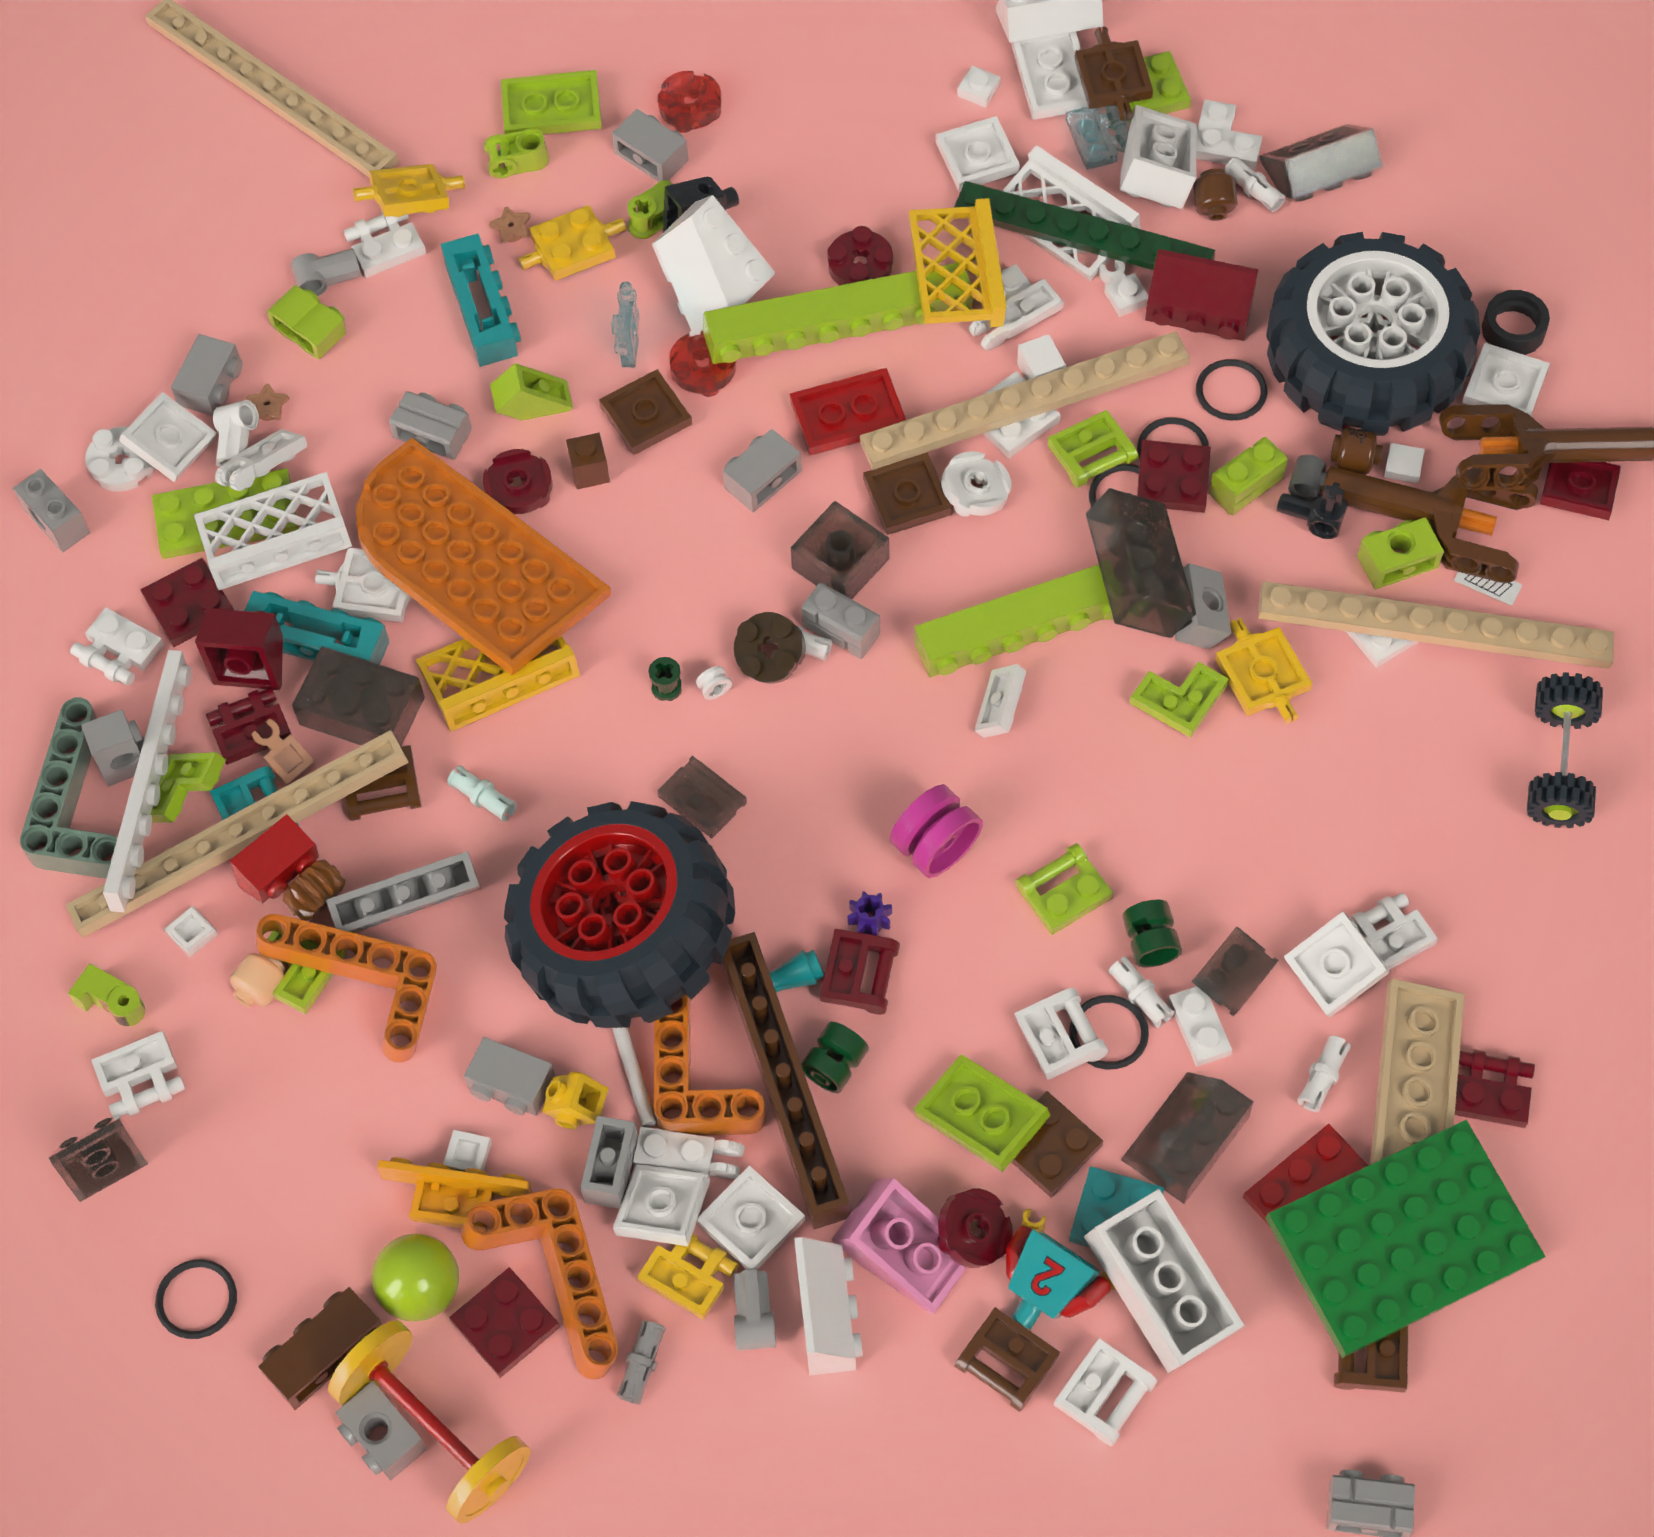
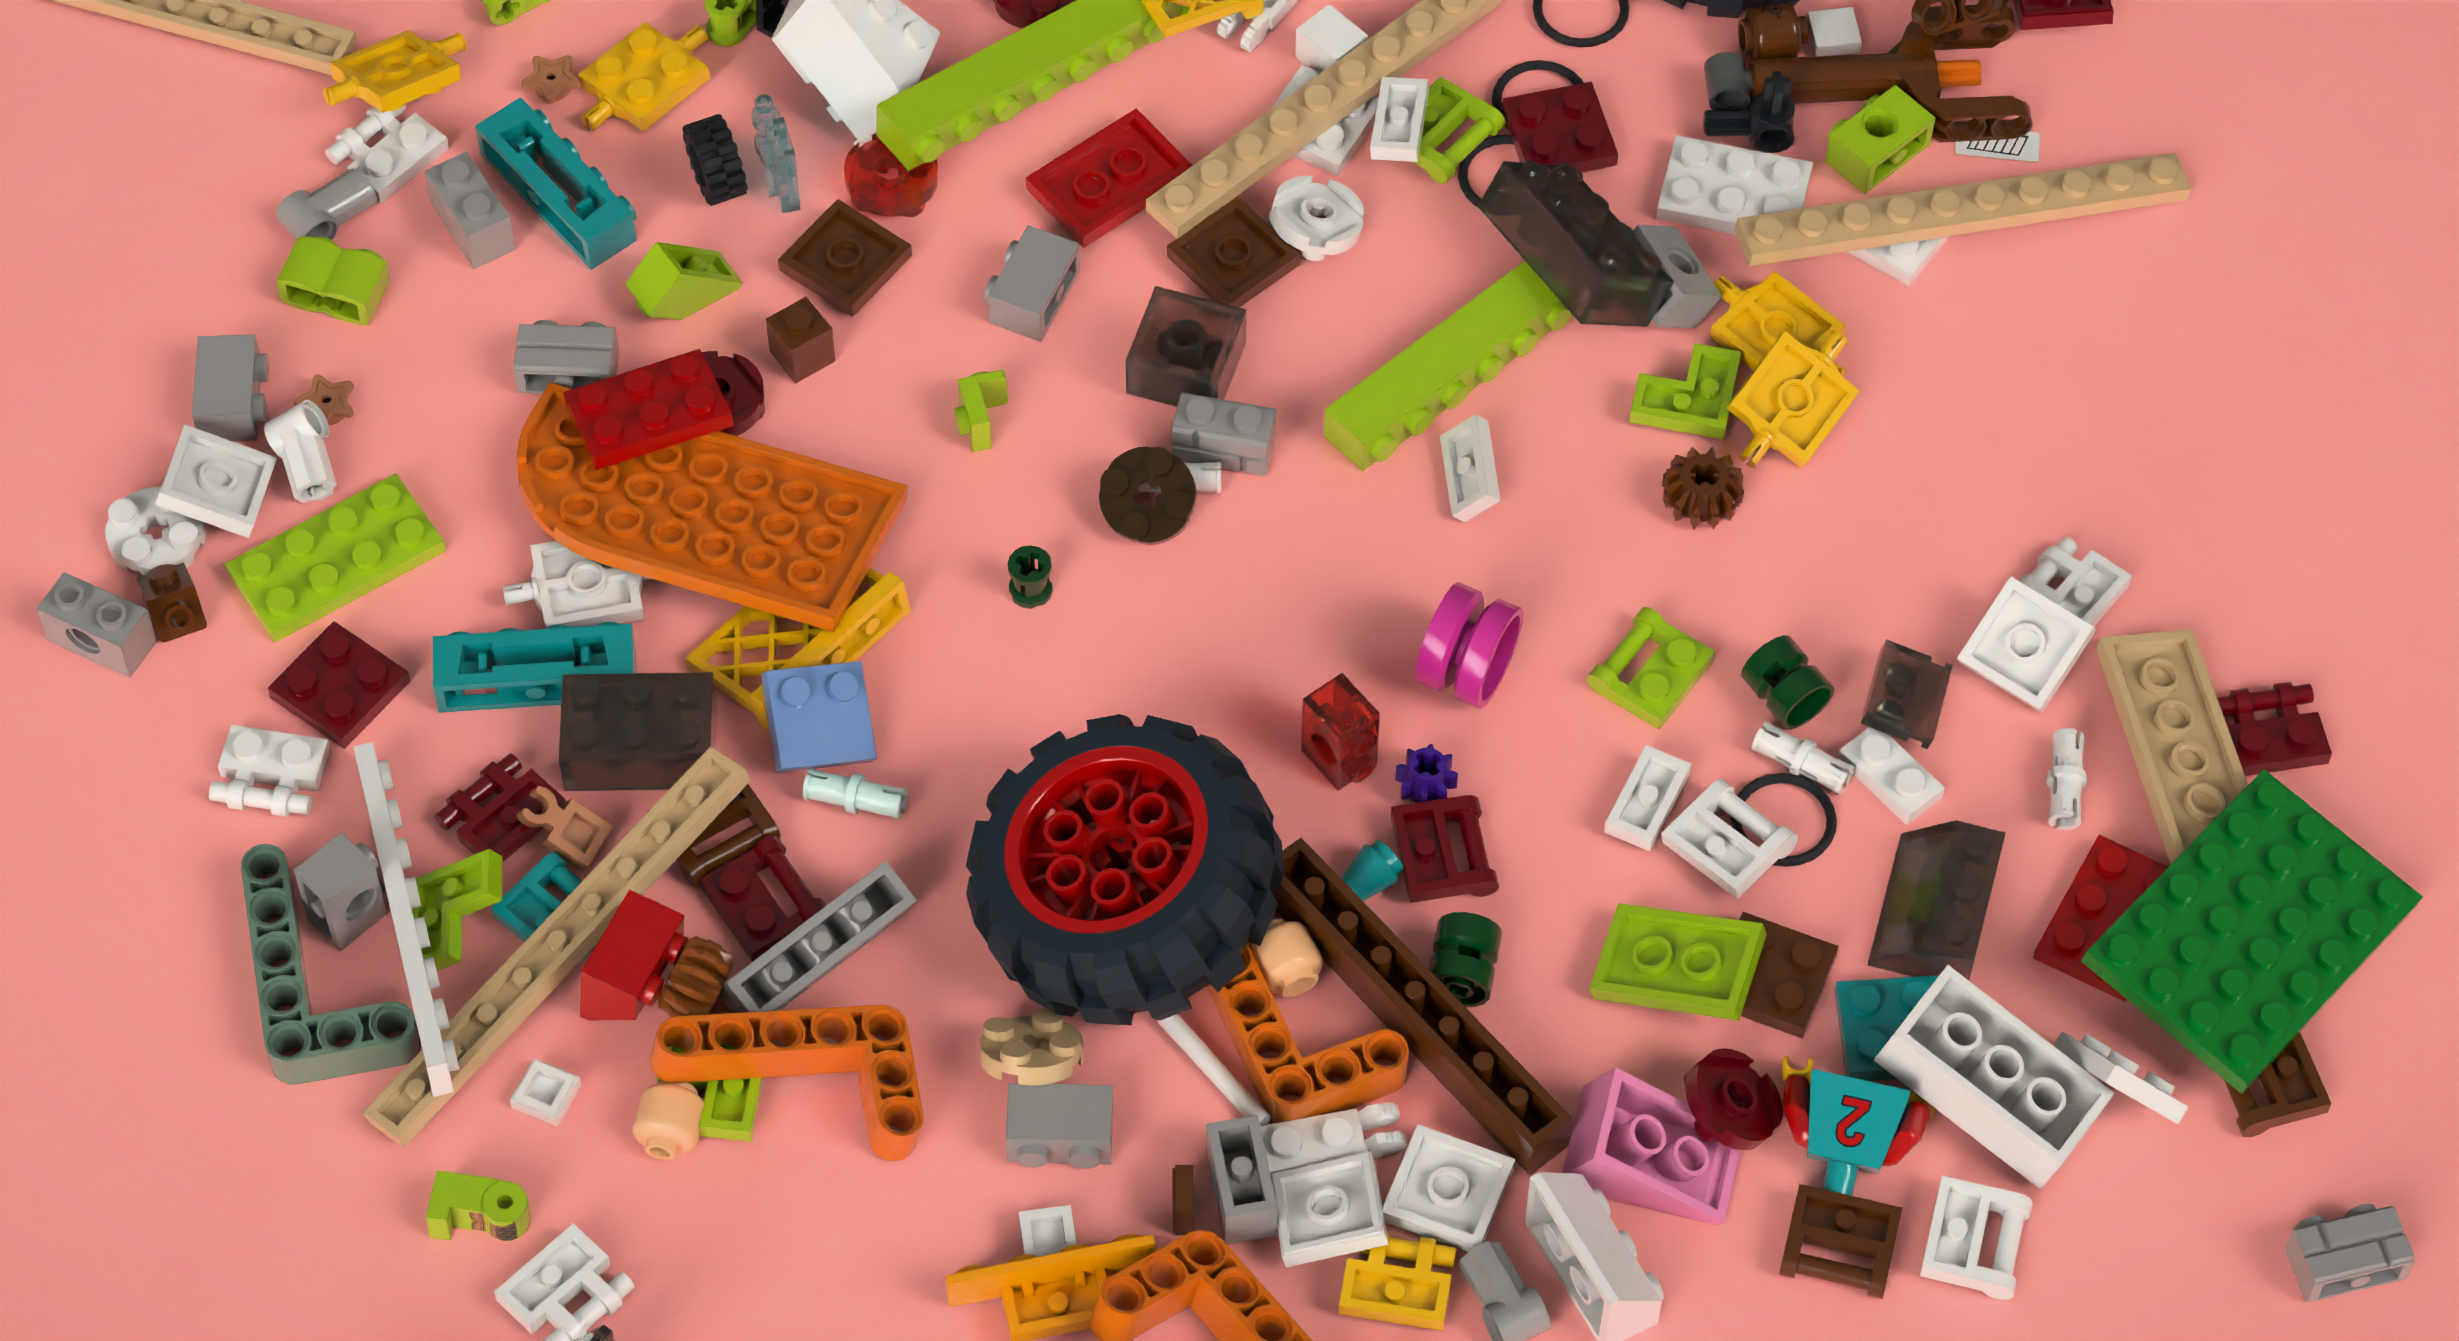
camera: 25 degrees left, 5 degrees down
(106, 509) = (172, 601): none -> reddish brown bracket
(241, 648) = (455, 712): dark red slope -> none
(259, 459) = (358, 470): white hinge -> none
(279, 549) = (441, 574): white fence -> none
(379, 845) = (748, 904): none -> dark red plate
(414, 301) = (470, 210): none -> light grey brick
(462, 477) = (648, 409): none -> red plate
(478, 731) = (818, 716): none -> medium blue plate
(499, 1004) = (1033, 1047): none -> tan plate
(567, 1161) = (1183, 1199): none -> reddish brown tile
(574, 1100) = (1161, 1120): yellow brick -> none
(585, 316) = (714, 159): none -> black tyre
(686, 537) = (975, 395): none -> lime bracket
(702, 797) = (1144, 692): clear smoke plate -> none
(714, 682) = (1094, 562): white bush -> none
(714, 1013) = (1288, 958): none -> light nougat head
(820, 863) = (1340, 732): none -> clear red brick
(1017, 983) = (1647, 798): none -> white plate
(1060, 432) = (1399, 119): none -> white plate
(1157, 769) = (1703, 487): none -> reddish brown gear
(1248, 476) = (1653, 102): lime brick -> none
(1248, 726) = (1793, 399): none -> yellow plate
(1255, 1314) = (2120, 1074): none -> white plate
(1278, 552) = (1717, 183): none -> white plate
(1563, 797) = (2163, 252): black axle -> none

